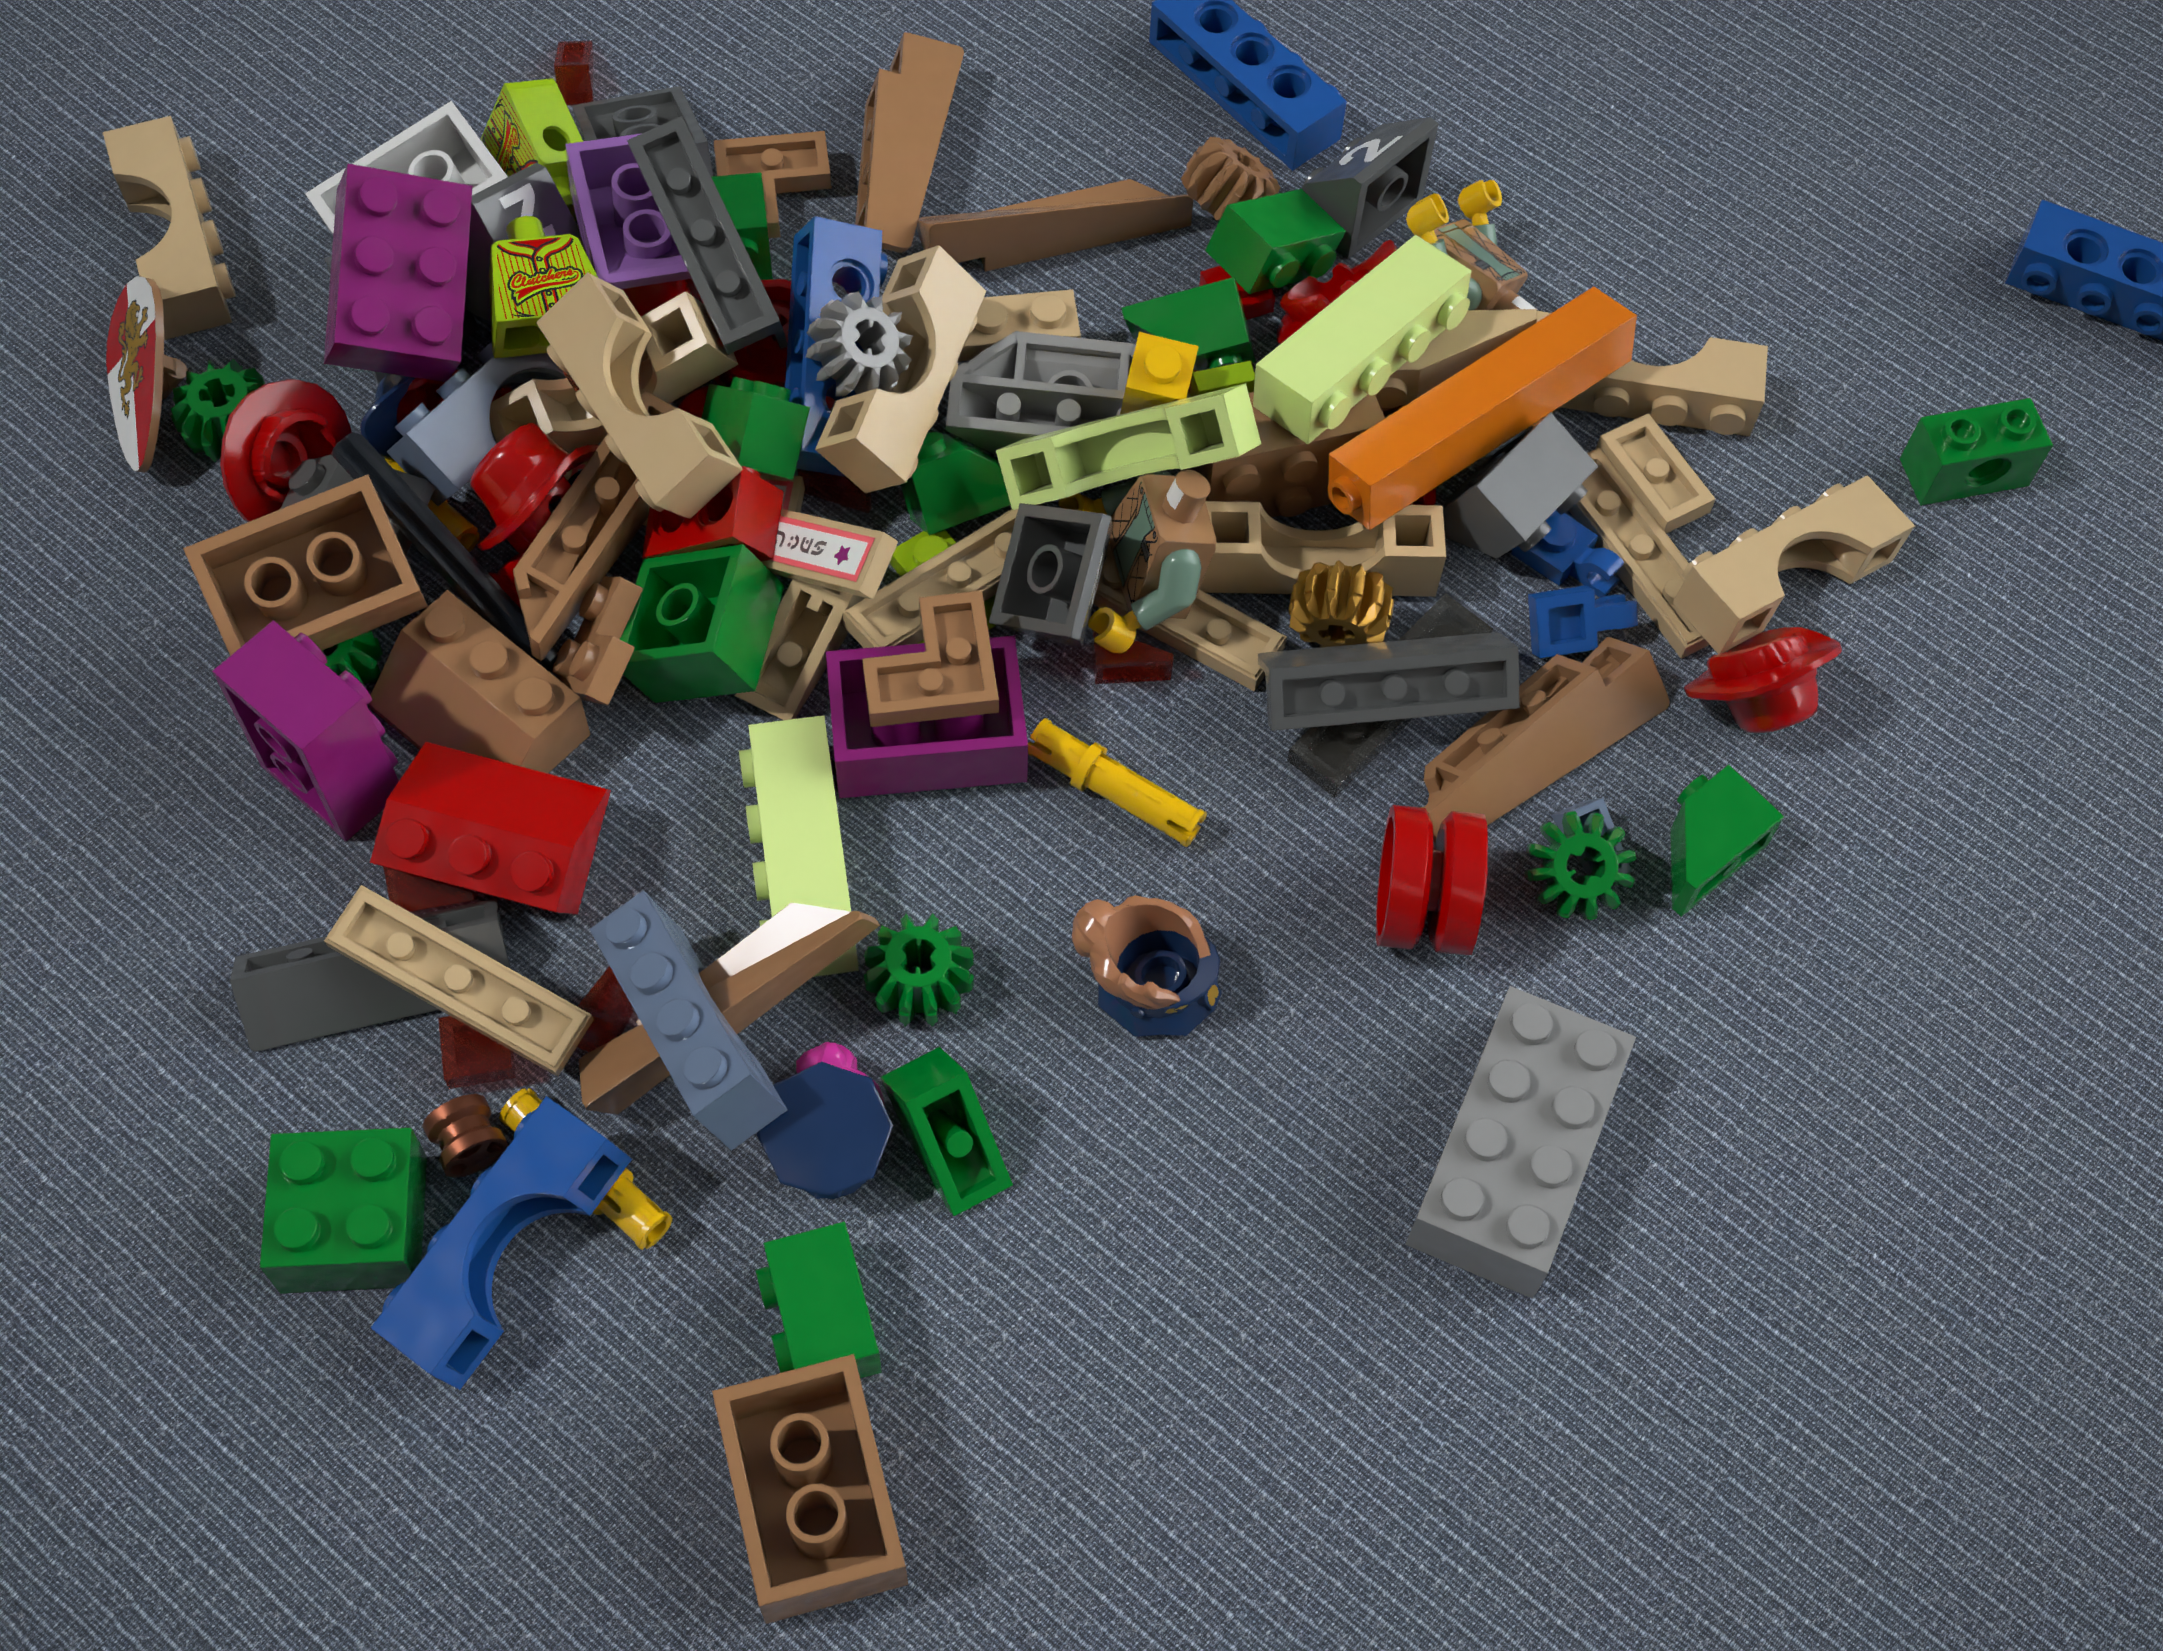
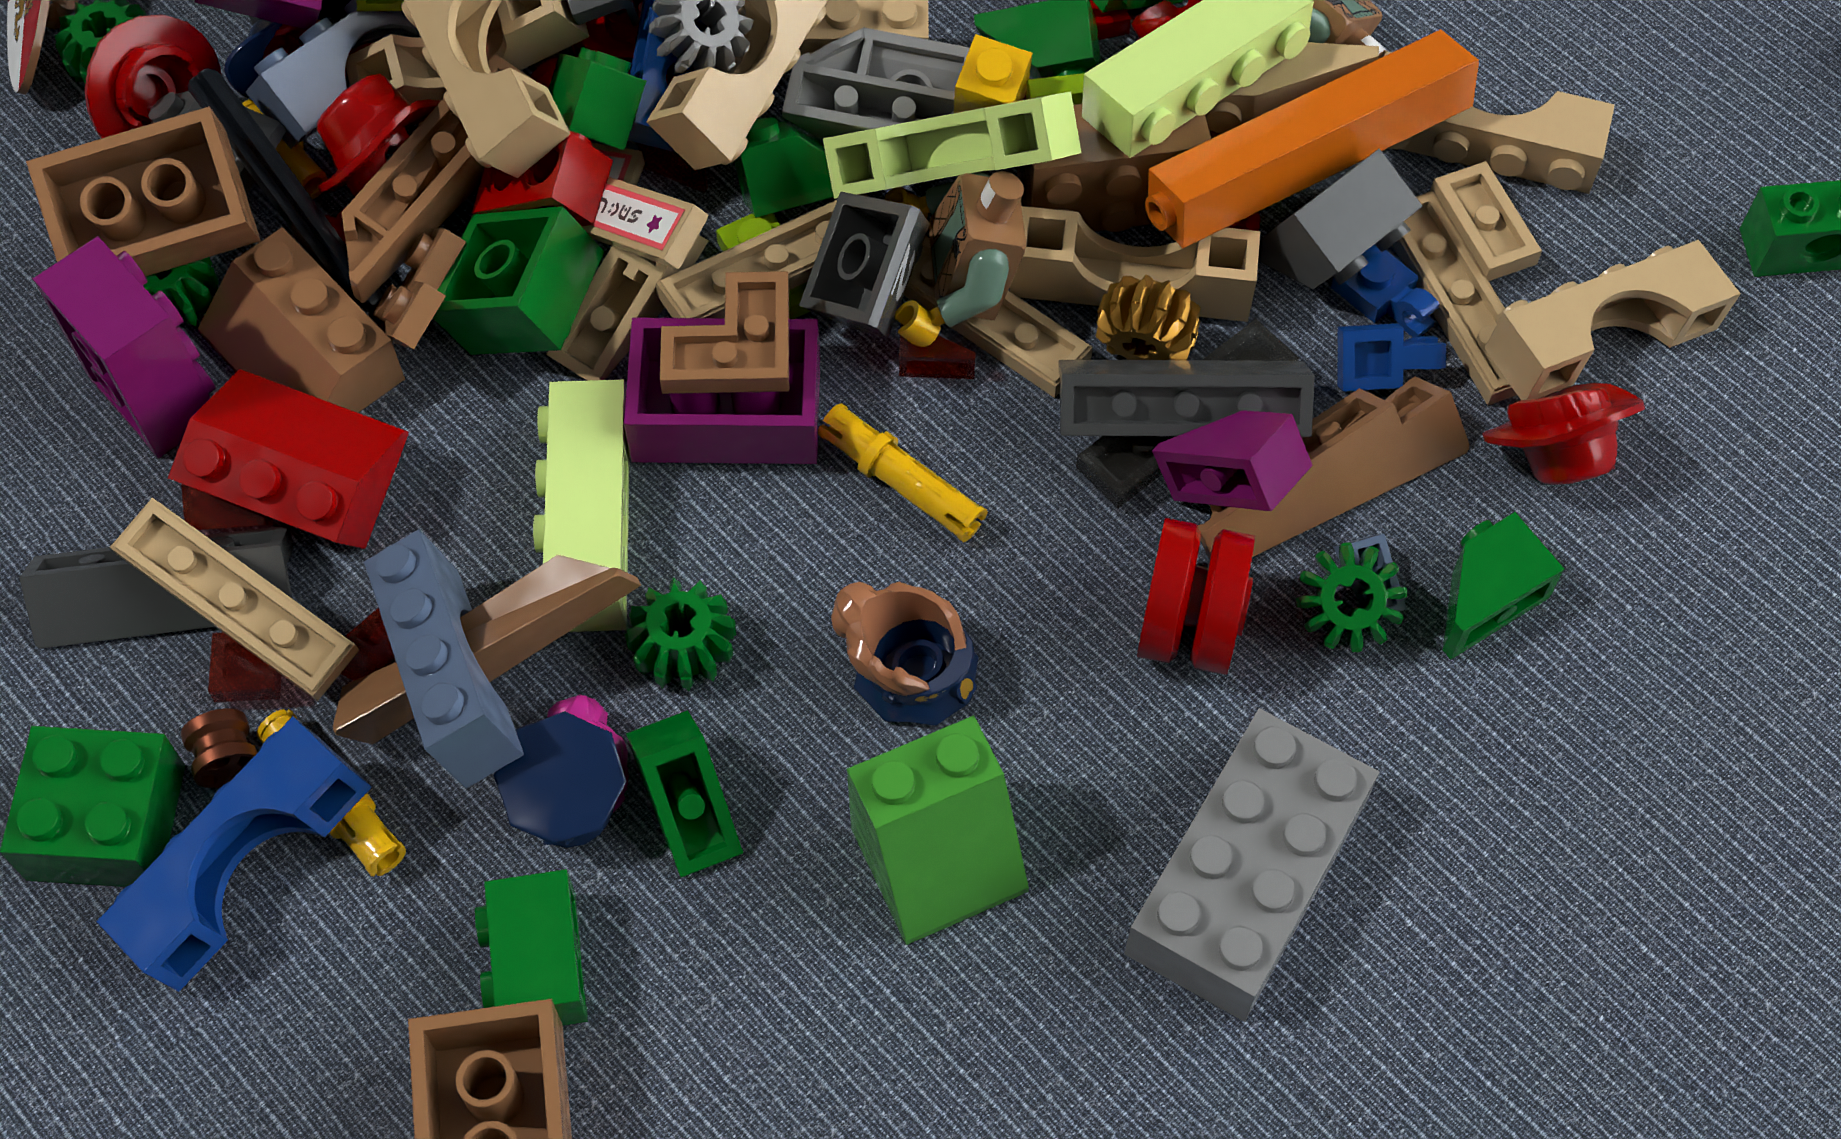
camera: 10 degrees right, 0 degrees up
(1210, 1141) = (937, 829): none -> bright green slope
(1449, 740) = (1235, 461): none -> magenta slope

